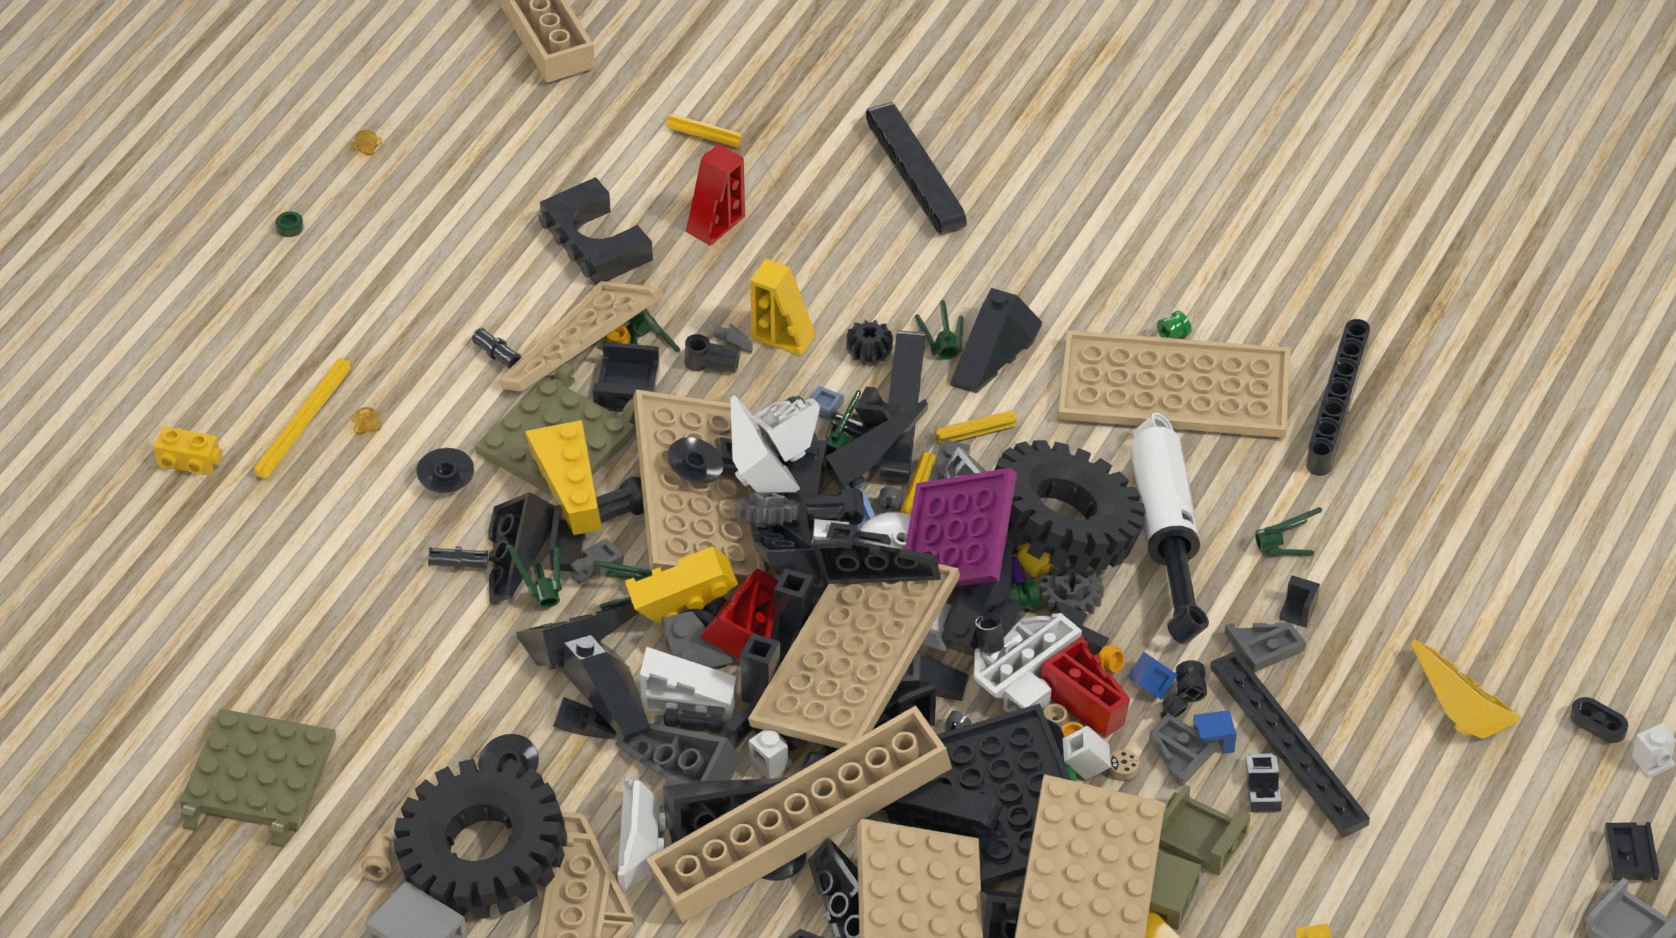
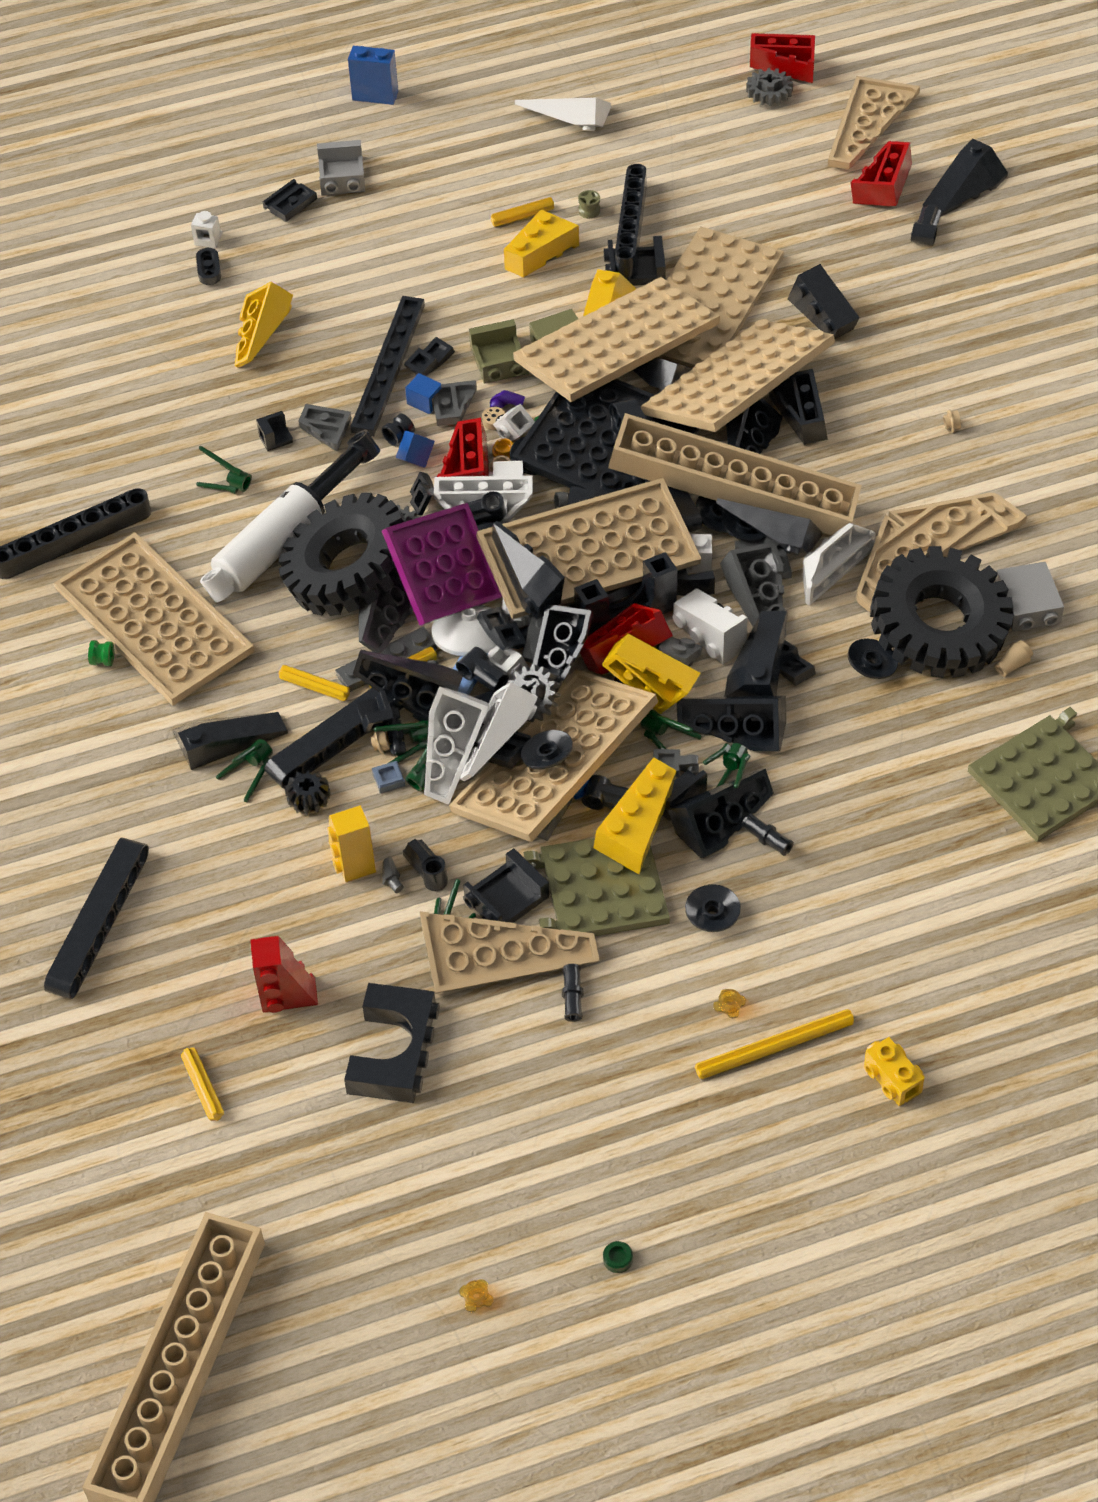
camera: 135 degrees left, 5 degrees up
(1111, 658) = (429, 468): light orange plate -> none
(1137, 784) = (506, 397): none -> dark purple arm
(1174, 705) = (425, 418): black plate -> none

